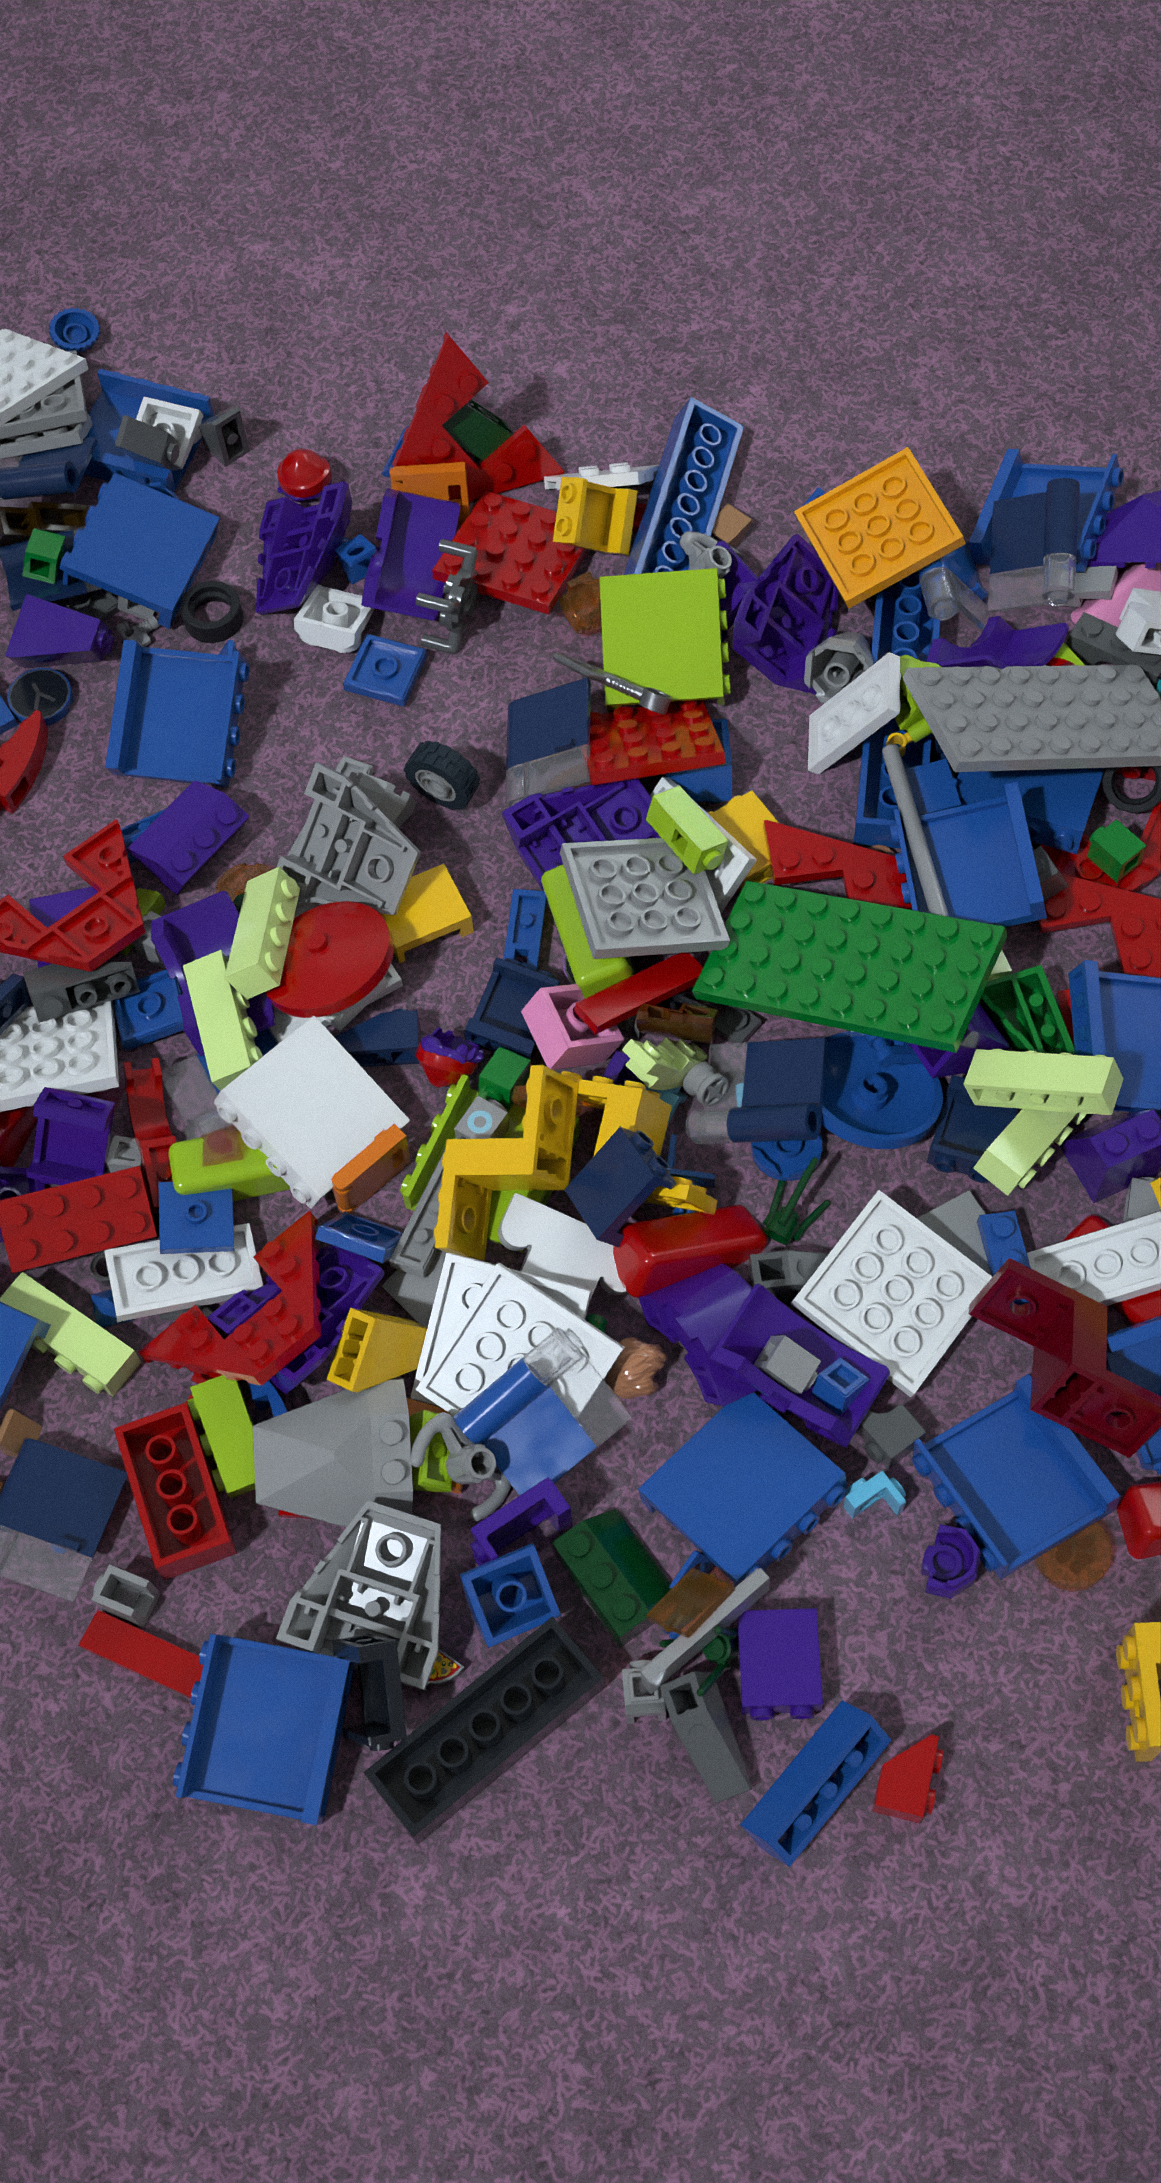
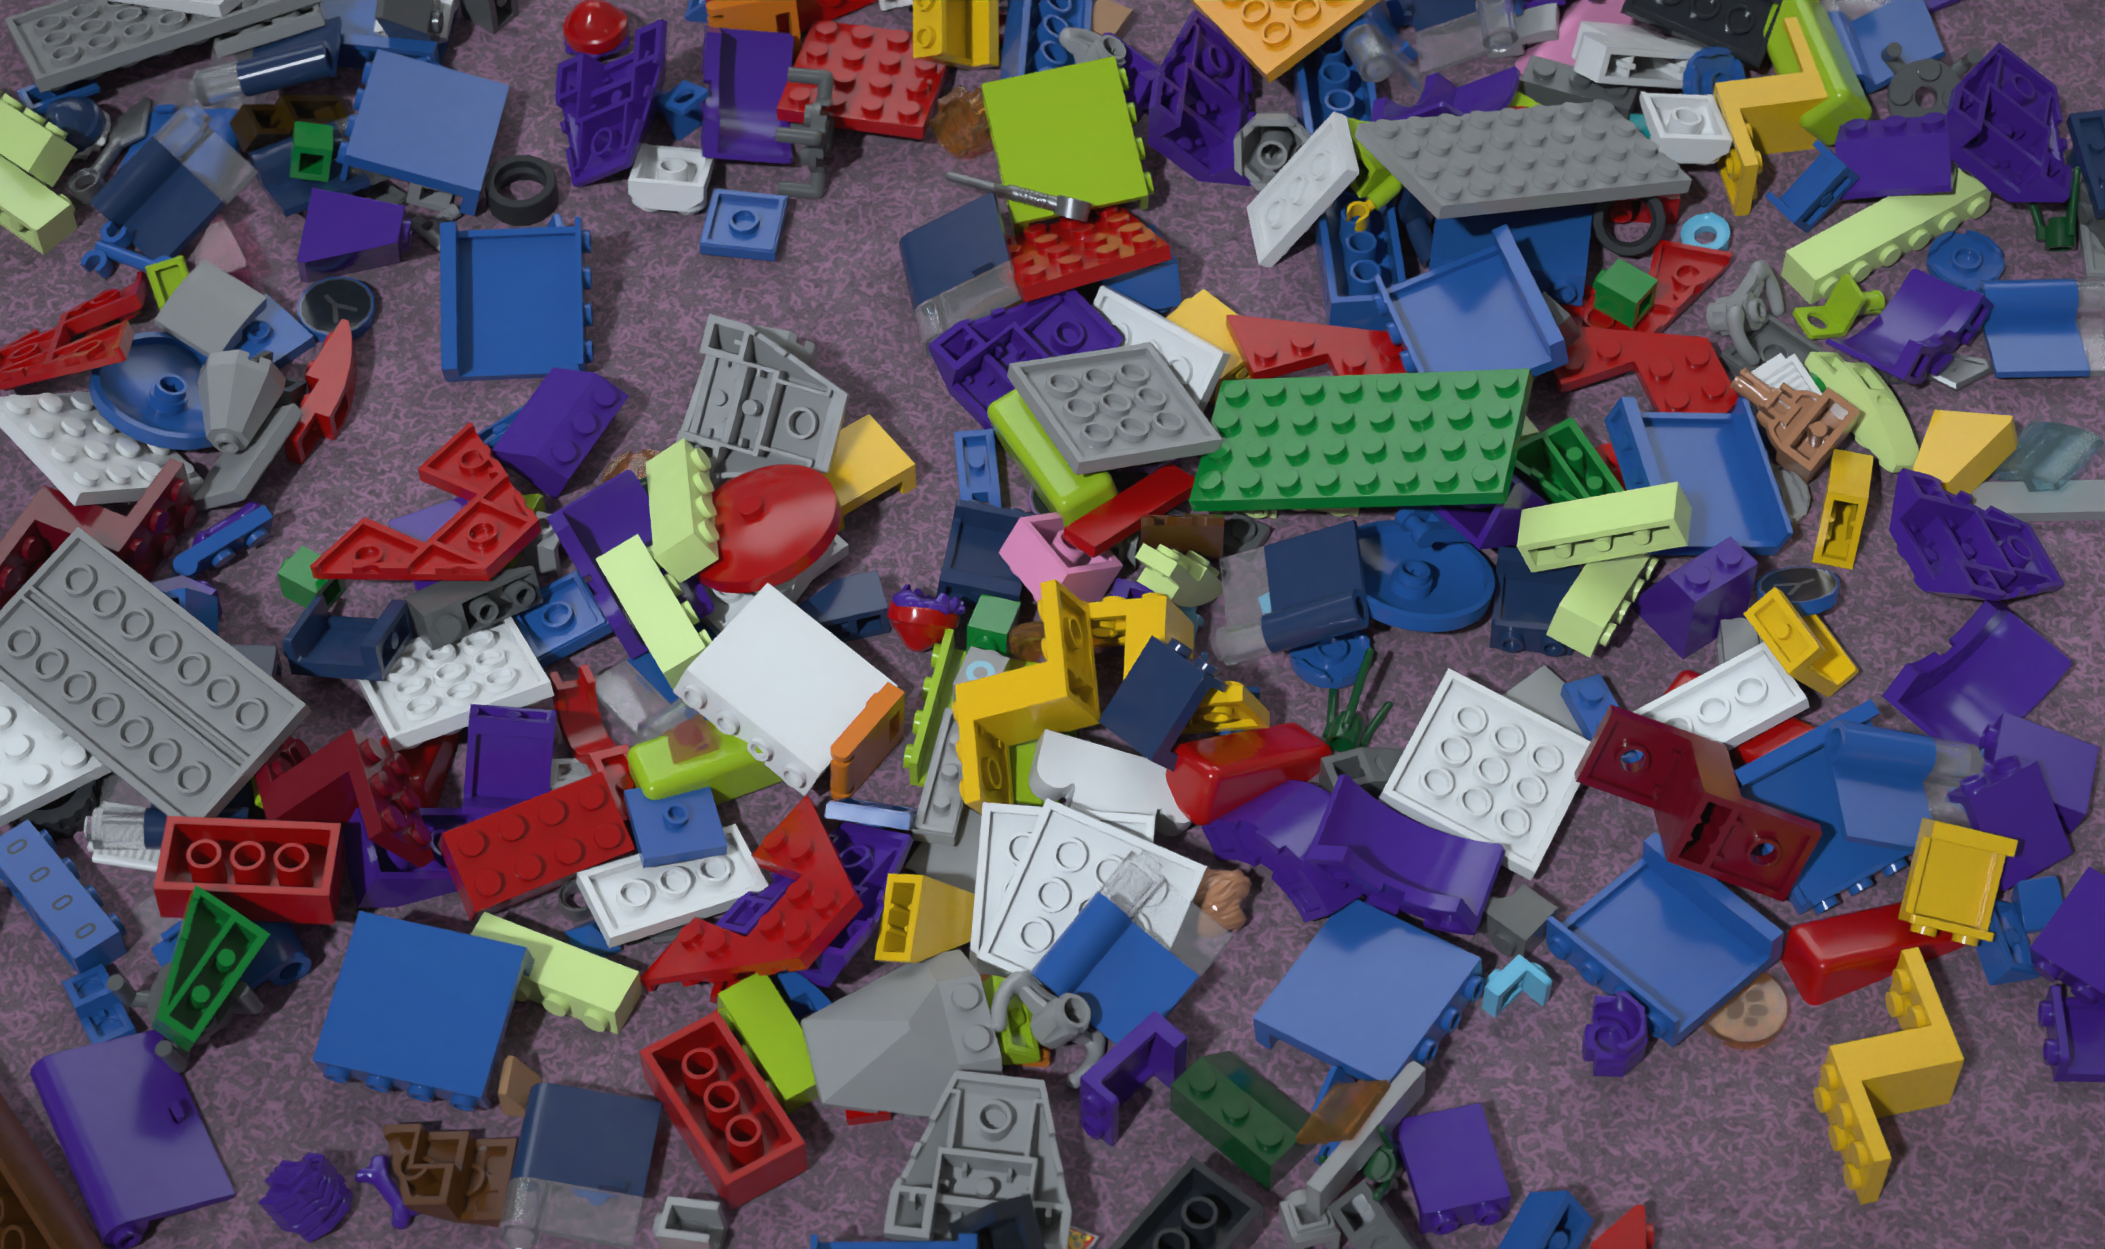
camera: 15 degrees left, 10 degrees down
(442, 775) = (844, 321): black wheel -> none
(509, 1595) = (1134, 1145): blue slope -> none
(687, 830) = (1145, 333): lime brick -> none
(705, 1084) = (1226, 597): light grey wheel -> none
(788, 1364) = (1394, 852): light grey brick -> none
(839, 1385) = (1452, 872): blue slope -> none
(914, 831) = (1399, 293): light grey piece -> none
(932, 787) = (1399, 255): blue piece -> none

